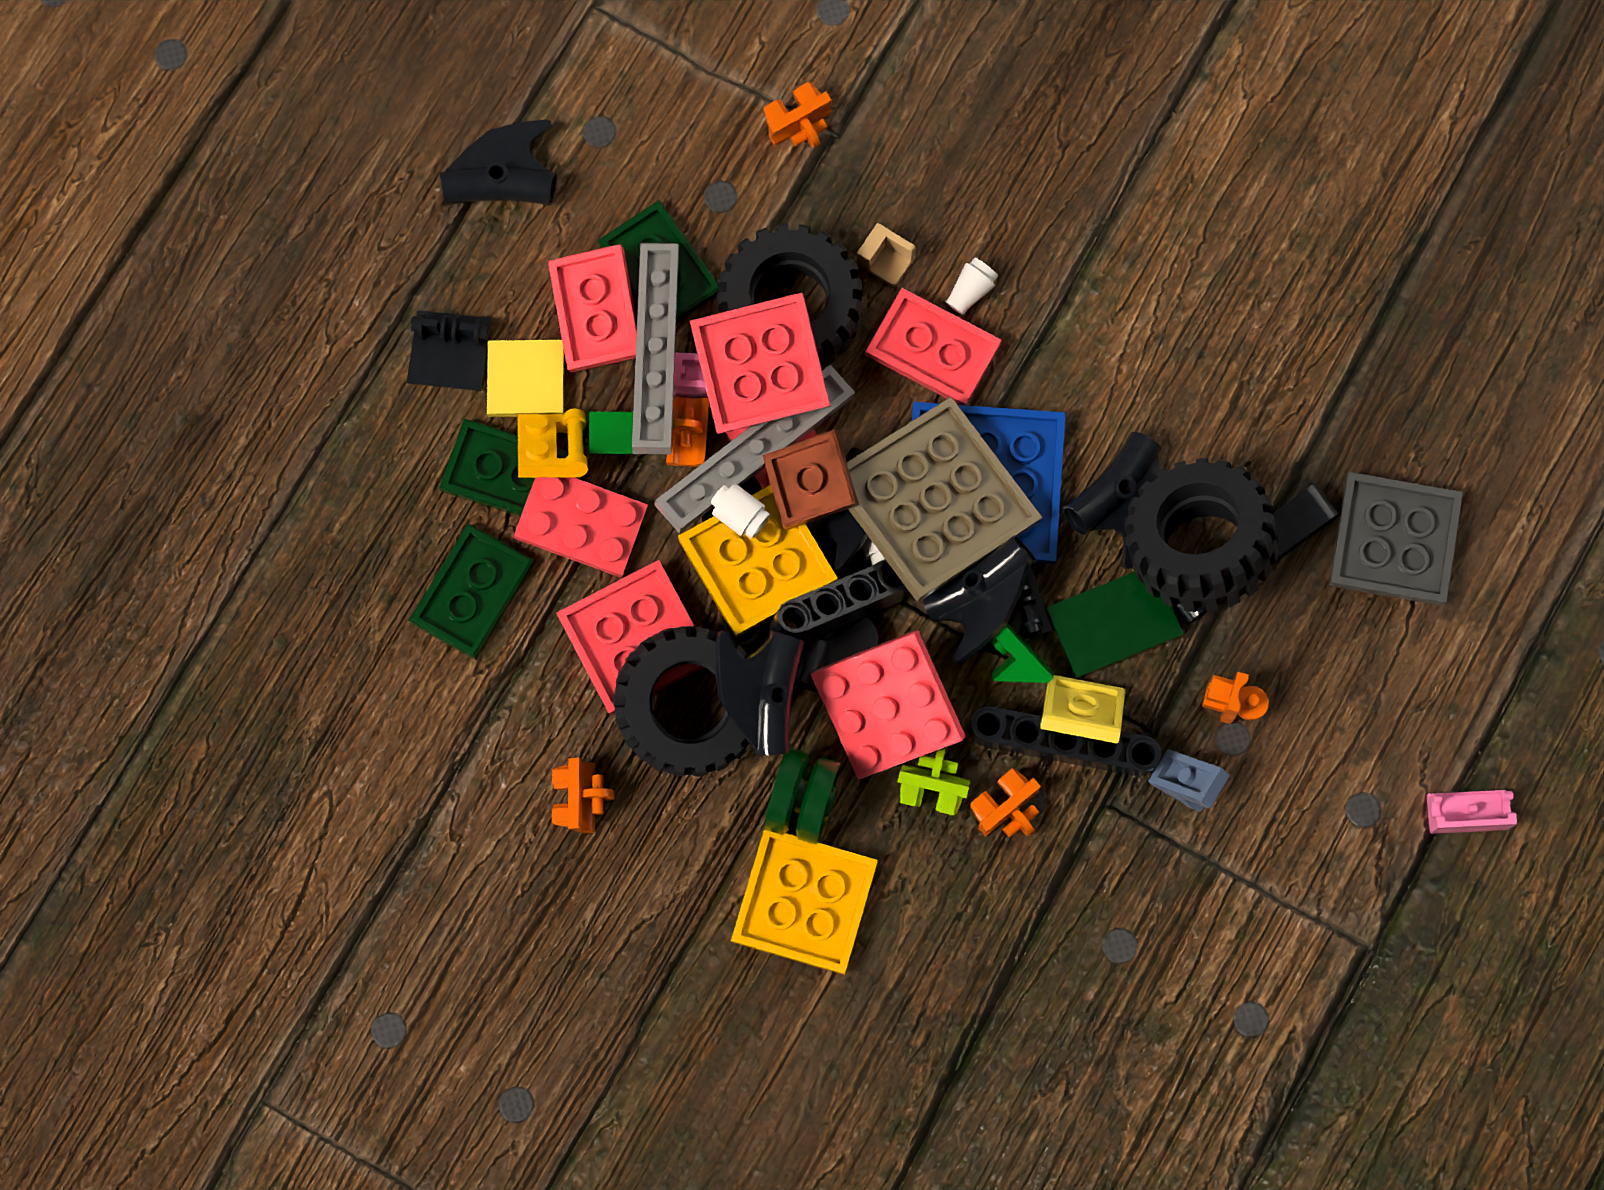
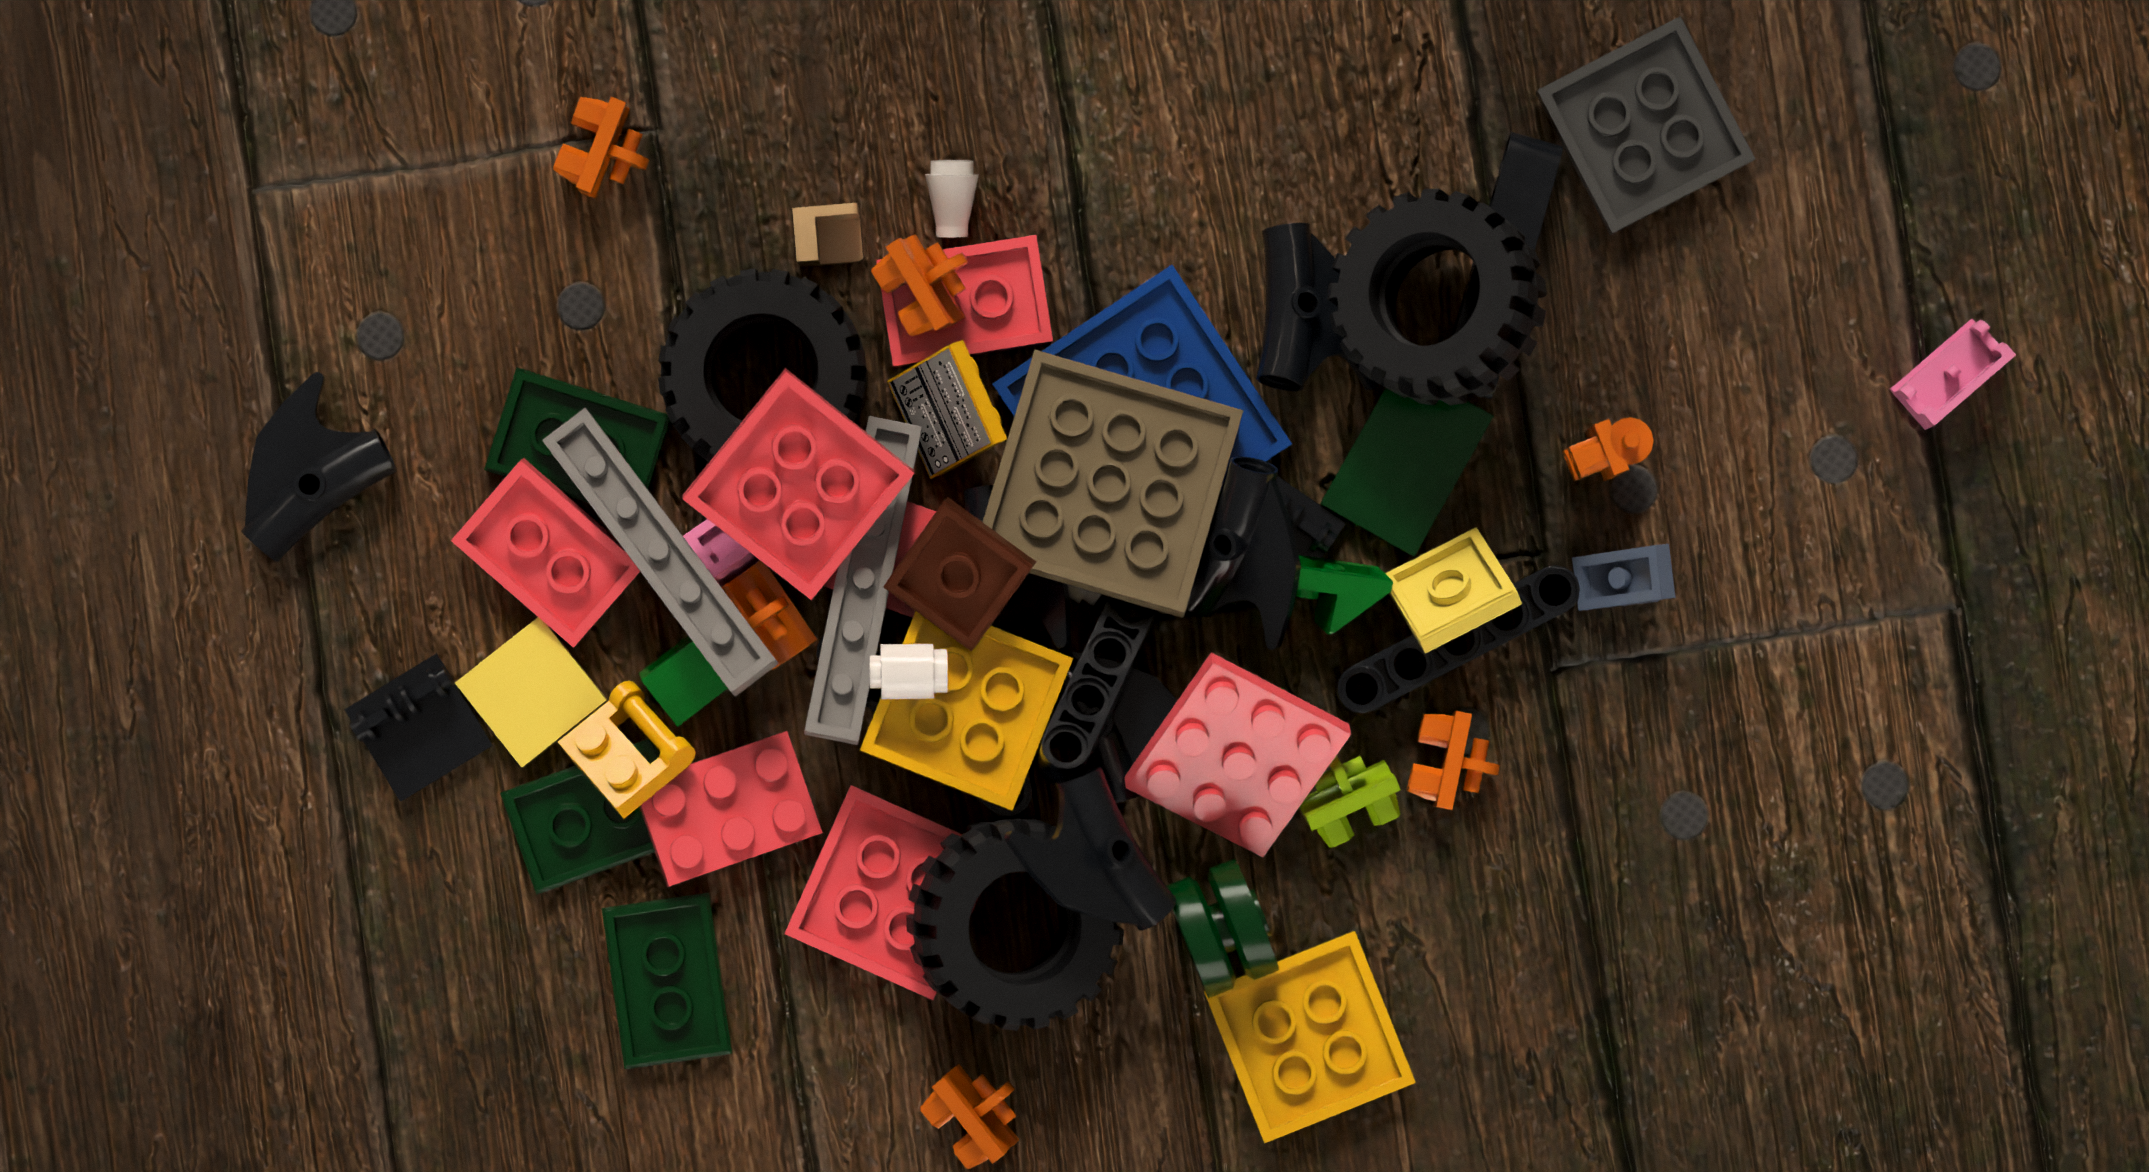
camera: 45 degrees left, 10 degrees up
(879, 394) = (951, 407): none -> tile
(923, 315) = (931, 280): none -> orange hips

